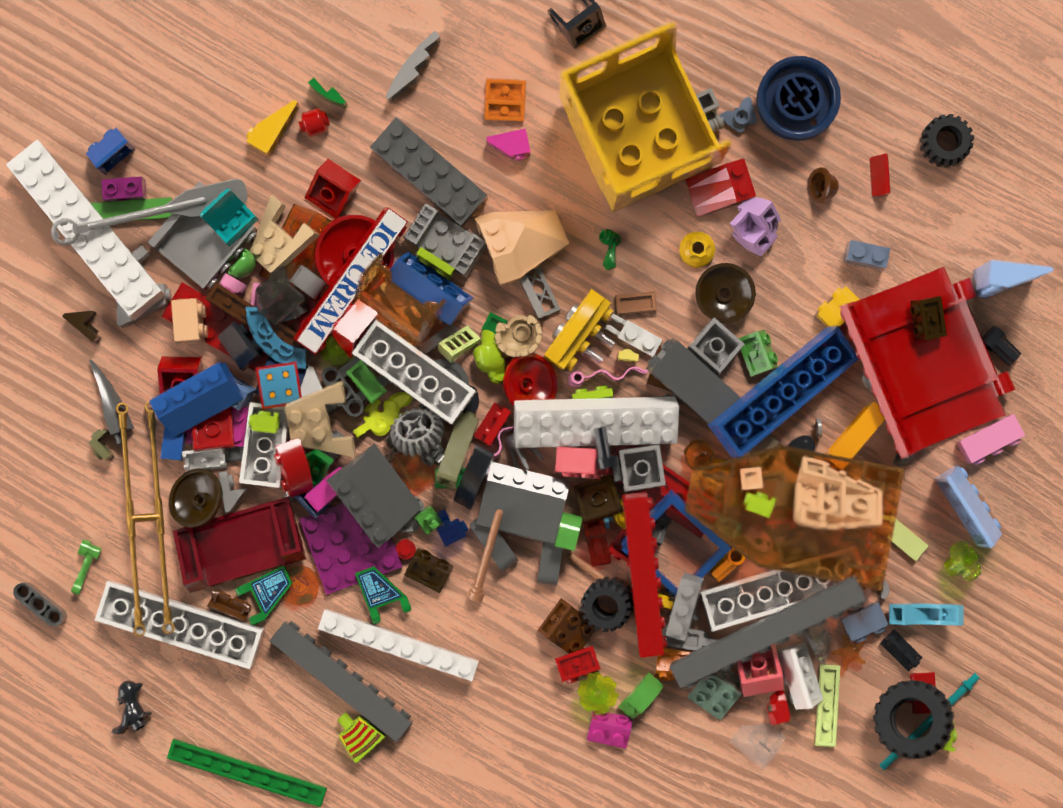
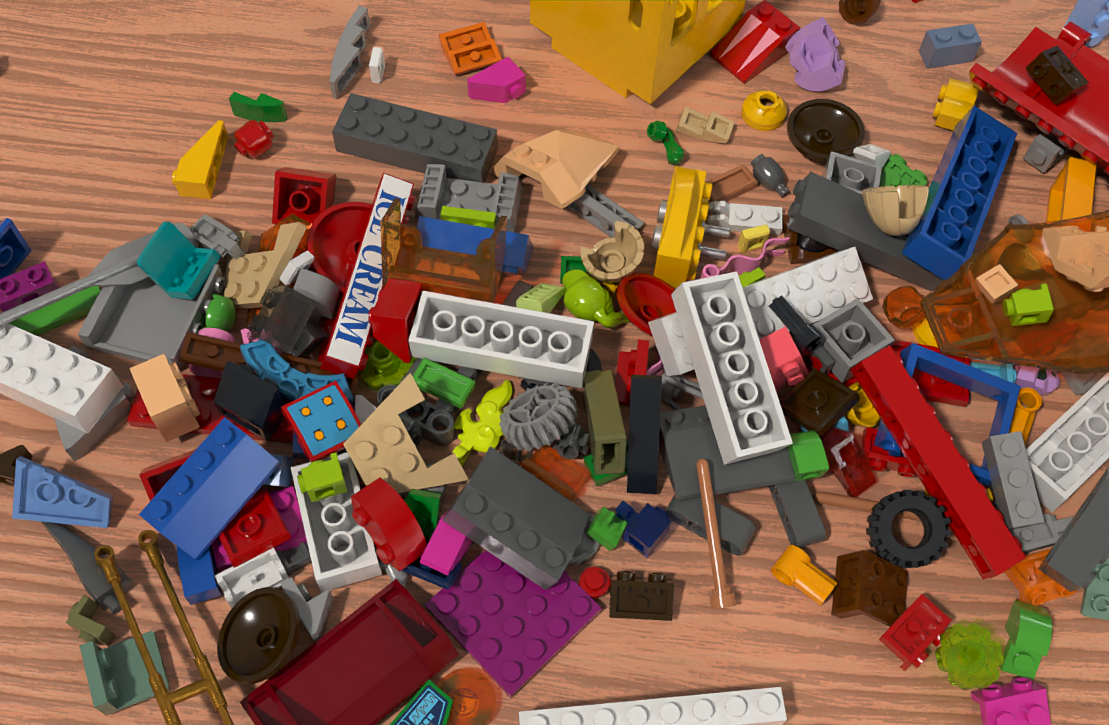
camera: 25 degrees left, 25 degrees down
(104, 357) = (56, 498): none -> medium blue wing
(109, 484) = (119, 674): none -> sand green bracket
(260, 199) = (216, 236): none -> light grey hinge
(303, 260) = (293, 268): none -> white tile
(379, 592) = (586, 656): flag -> none
(428, 89) = (377, 65): none -> white tile
(531, 599) = (796, 569): none -> light orange piece
(541, 465) = (731, 368): none -> white brick
(645, 245) = (699, 126): none -> tan slope
(668, 308) = (769, 174): none -> dark grey plant
(720, 390) = (896, 209): none -> tan hair
(746, 329) = (872, 154): none -> white slope

